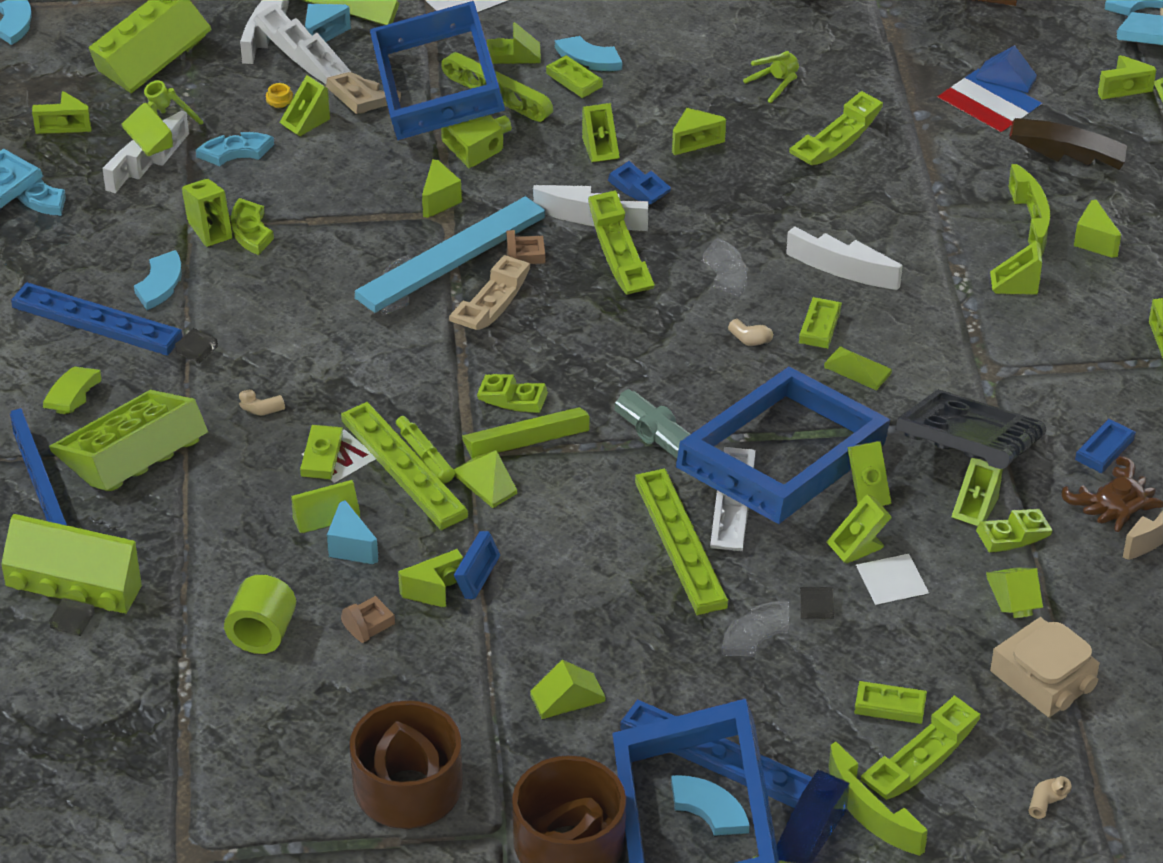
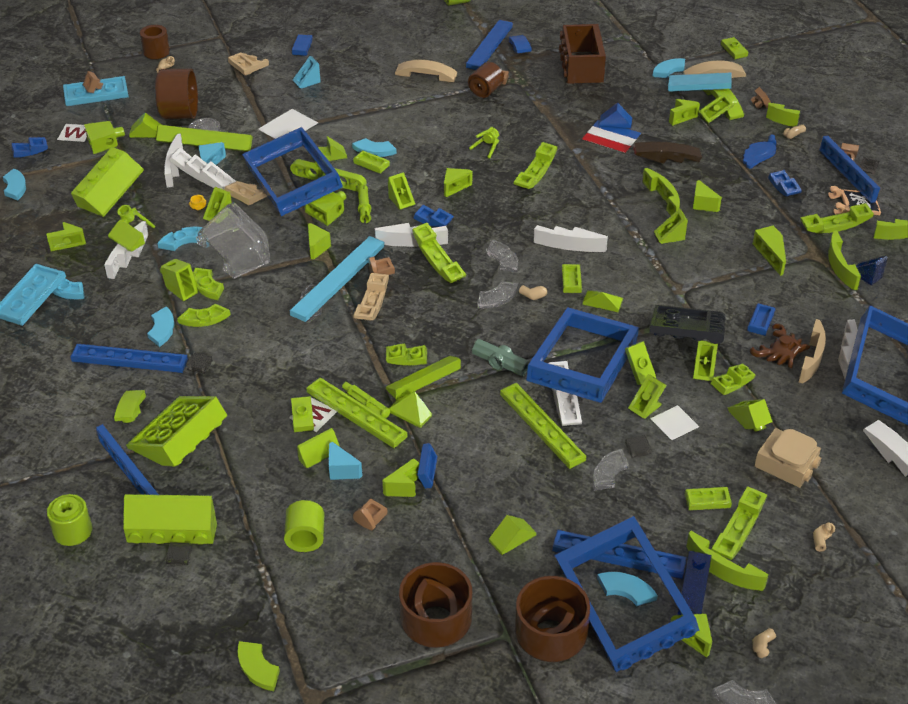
camera: 15 degrees left, 0 degrees up
(125, 795) = (256, 667): none -> lime tile
(228, 276) = (203, 317): none -> lime tile
(260, 407) = (255, 393): tan arm -> none
(312, 168) = (236, 240): none -> clear windscreen
(535, 148) = (364, 207): none -> lime pin
(693, 328) = (498, 296): none -> clear tile

